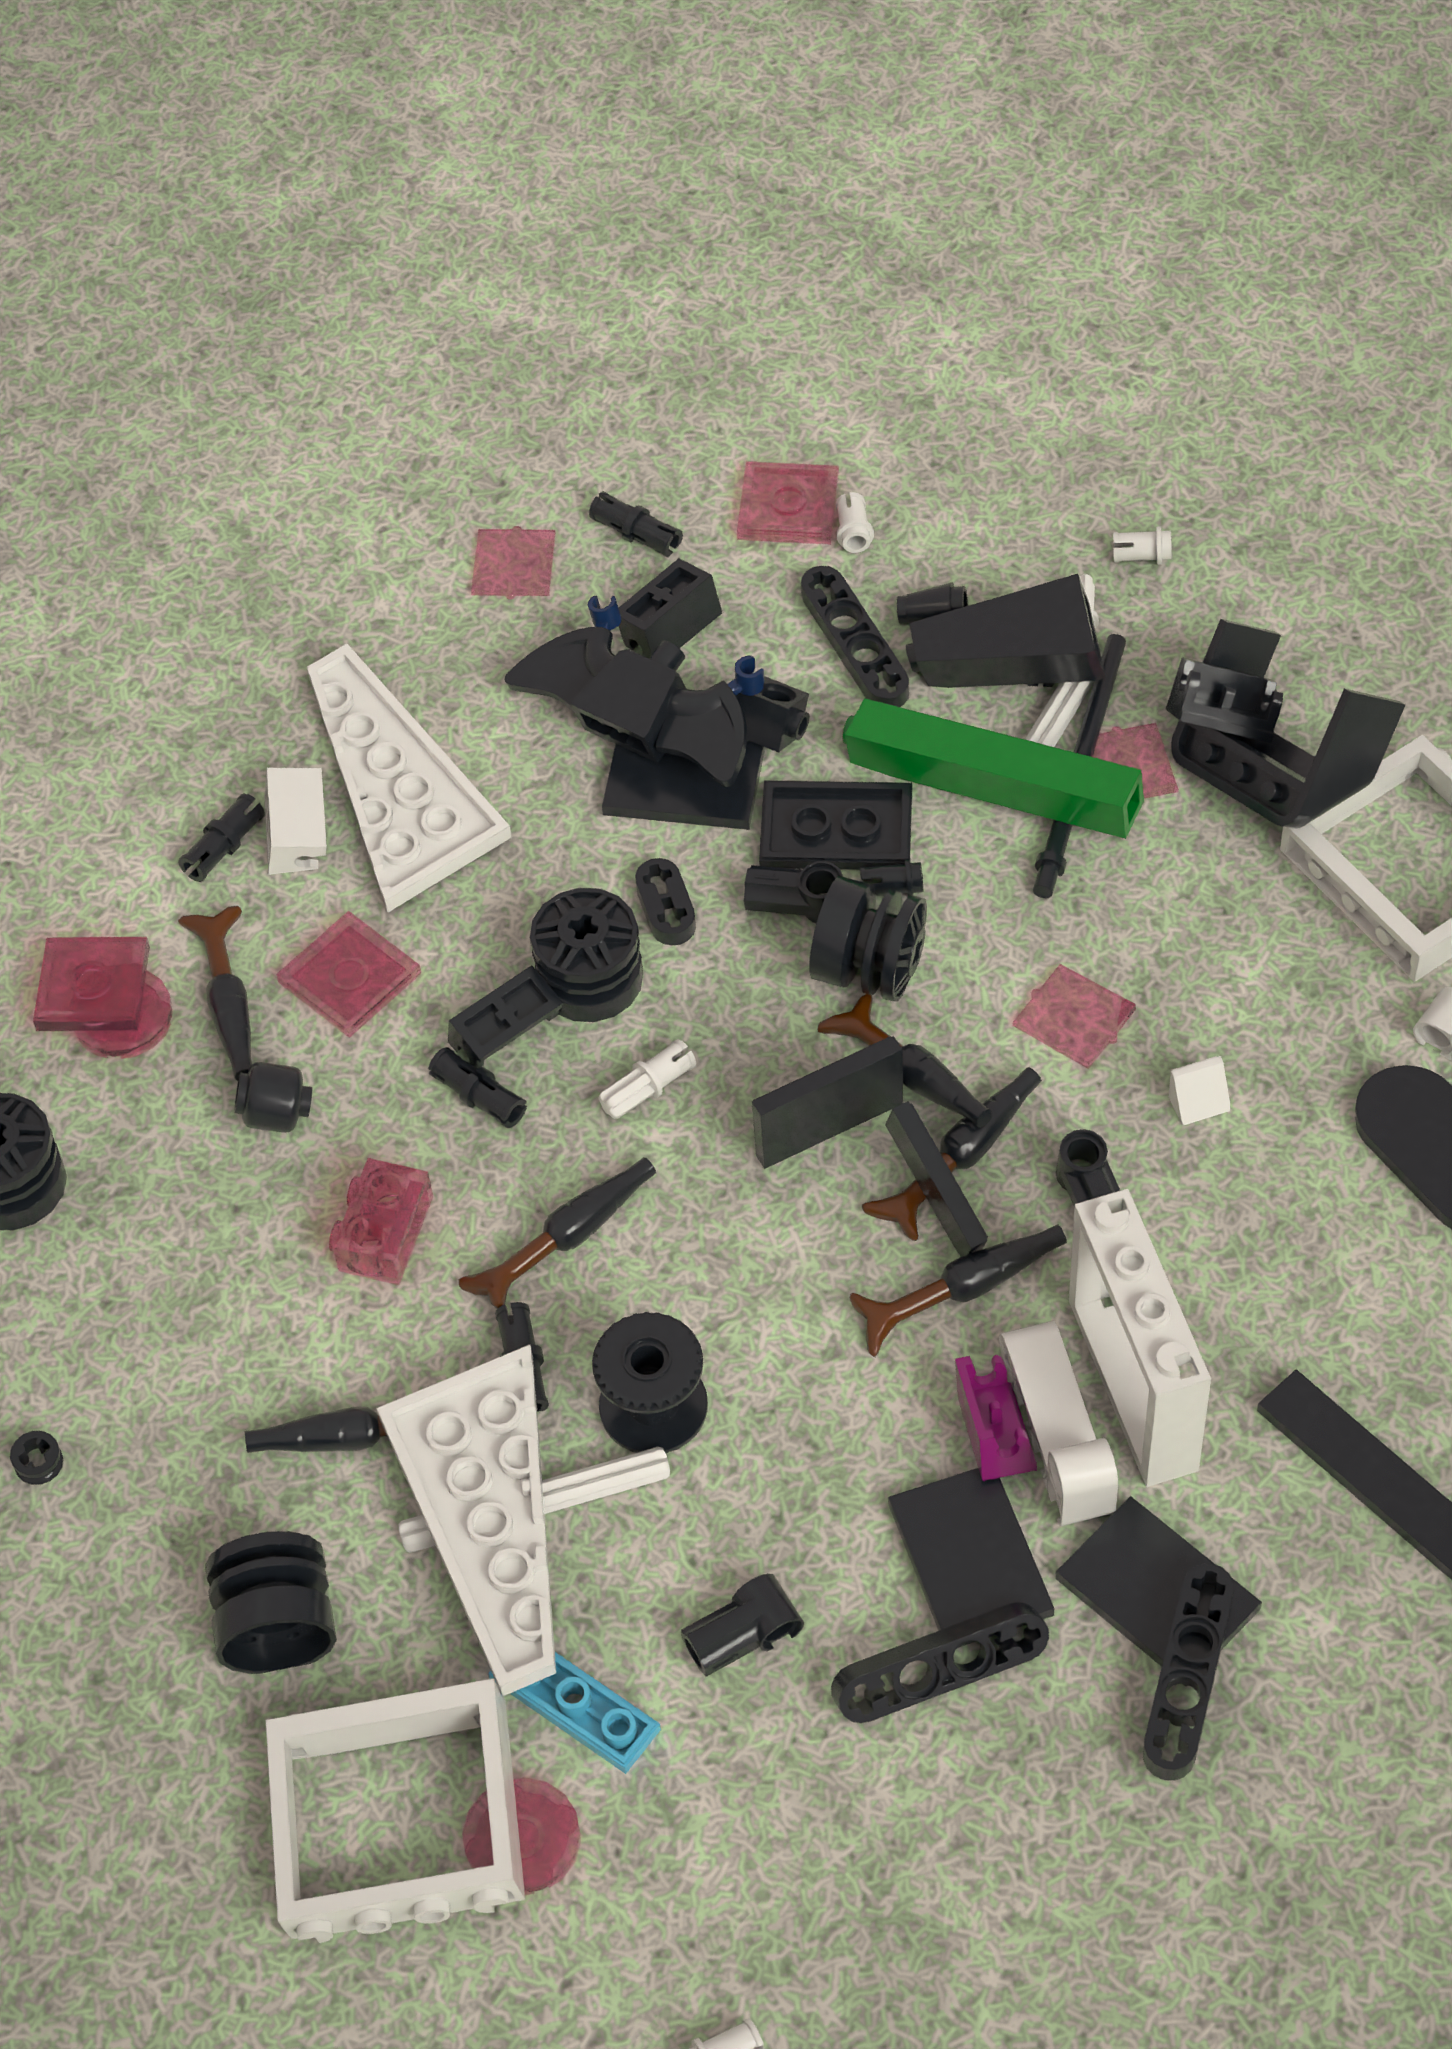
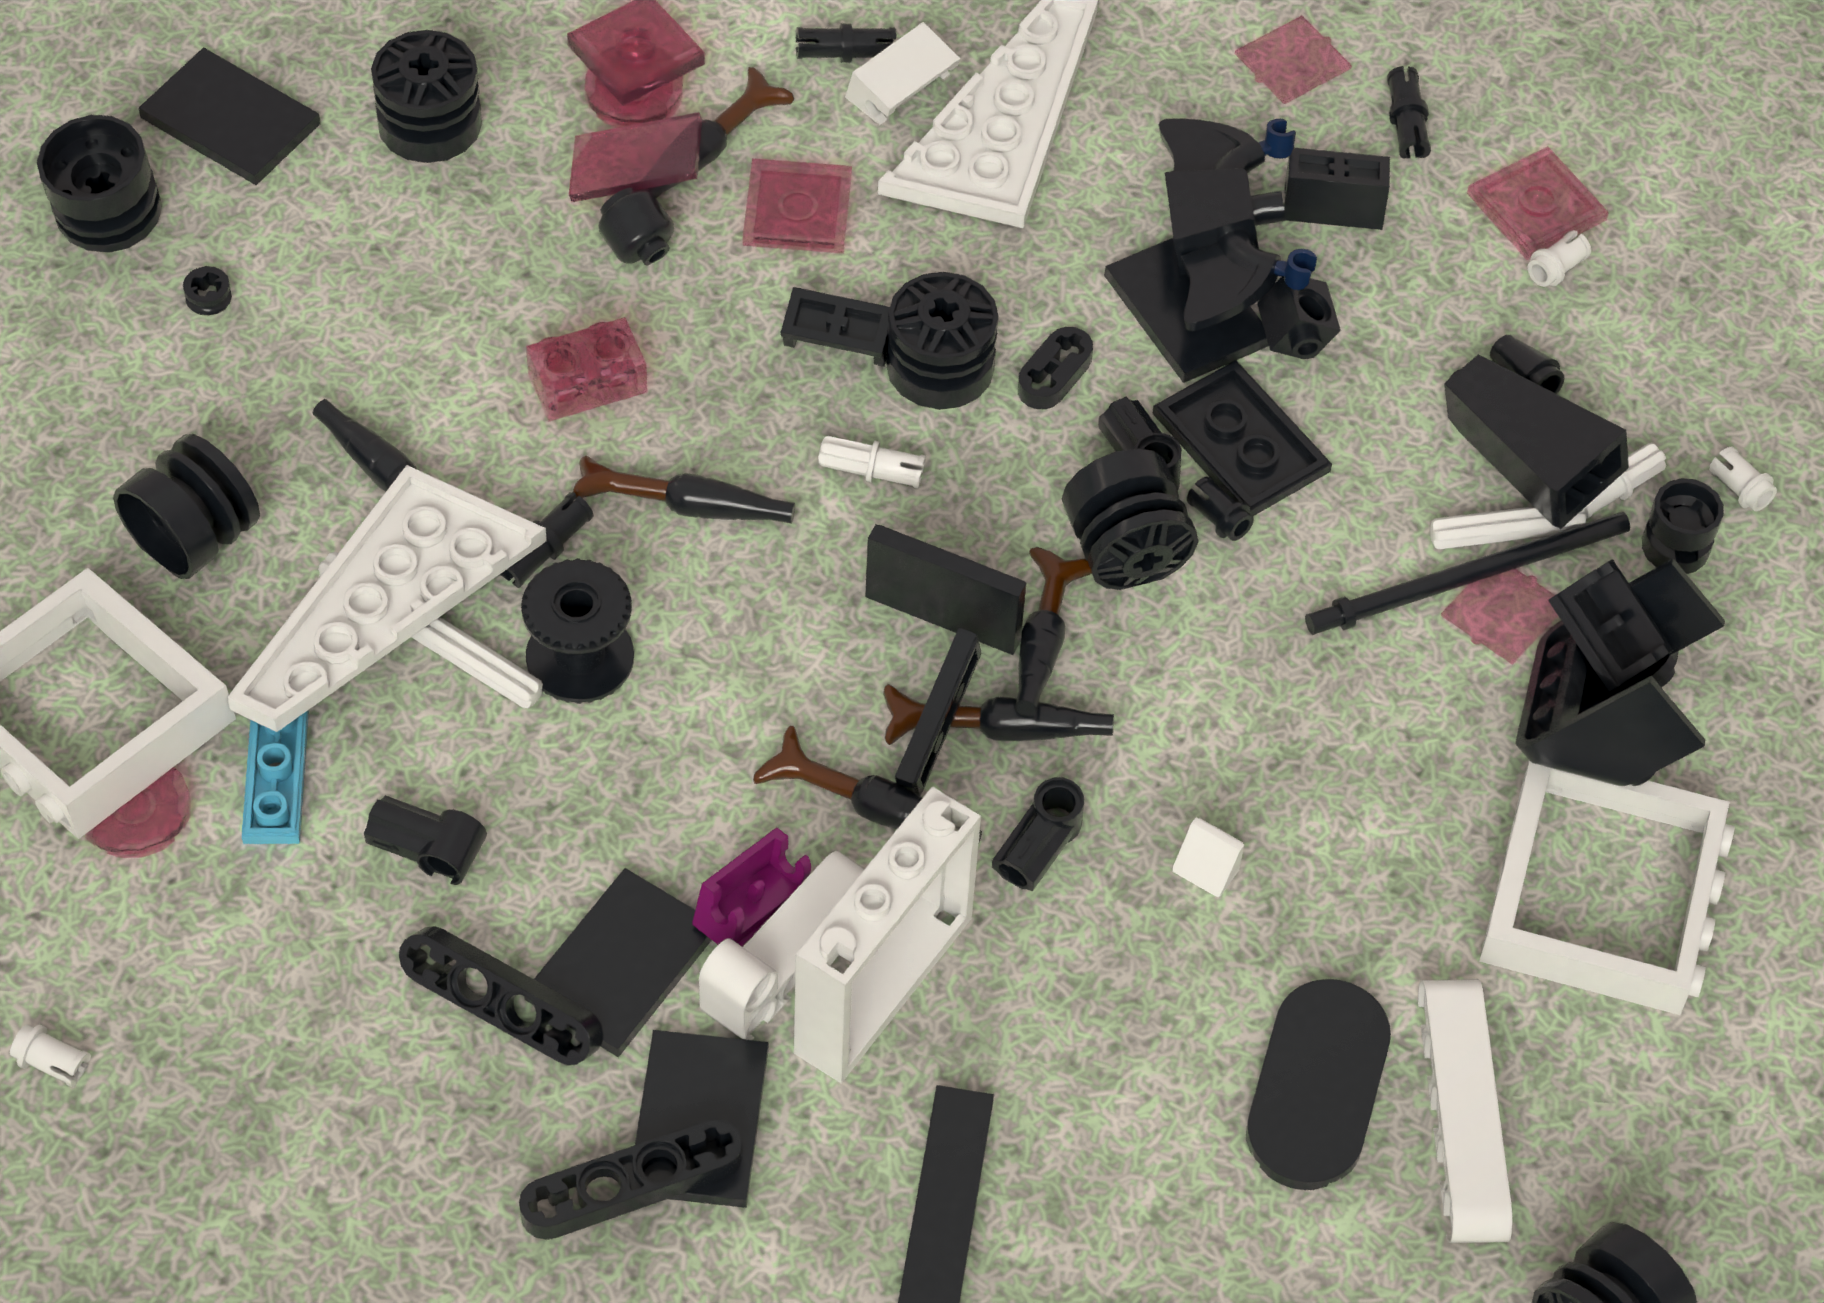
camera: 45 degrees right, 0 degrees up
(202, 1053) = (635, 157): none -> clear pink piece
(477, 1087) = (762, 376): black pin -> none
(859, 636) = (1441, 334): black beam -> none
(995, 767) = (1392, 509): green brick -> none
(1074, 1015) = (1208, 725): clear pink piece -> none
(1161, 605) = (1683, 524): none -> black wheel

